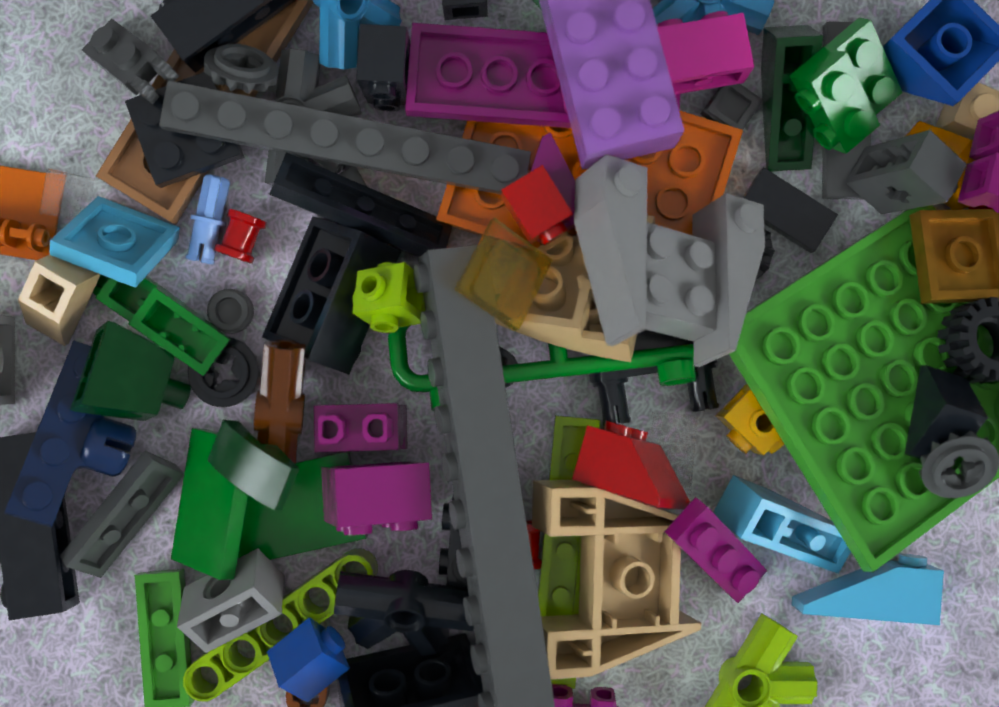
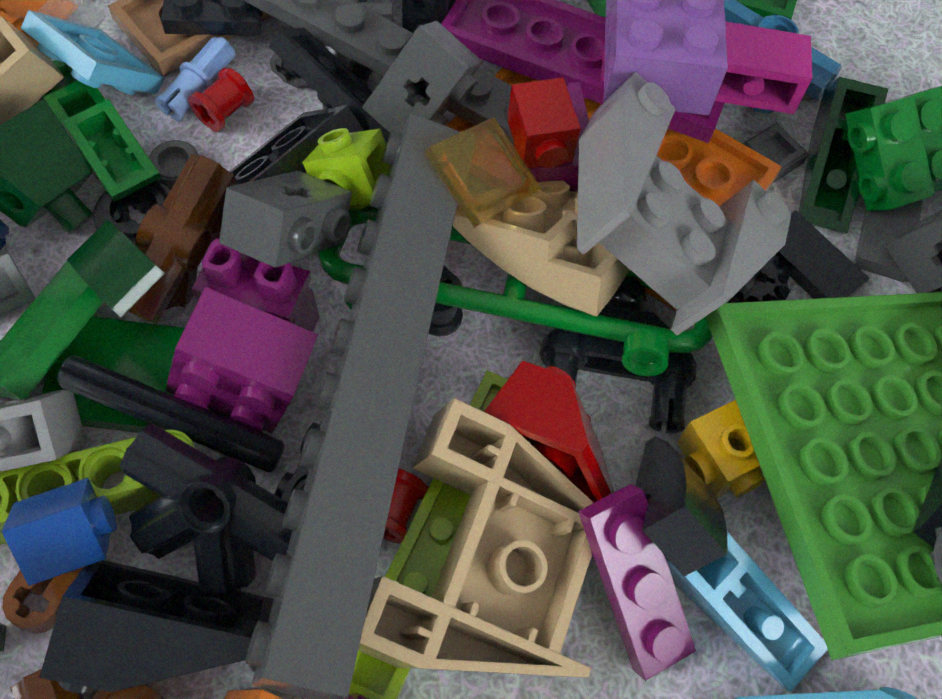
camera: 10 degrees right, 25 degrees down
(333, 542) = (170, 413): none -> black axle
(366, 376) = (285, 217): none -> dark grey brick
(419, 187) = (431, 56): none -> dark grey brick
(733, 493) = (681, 509): none -> black slope

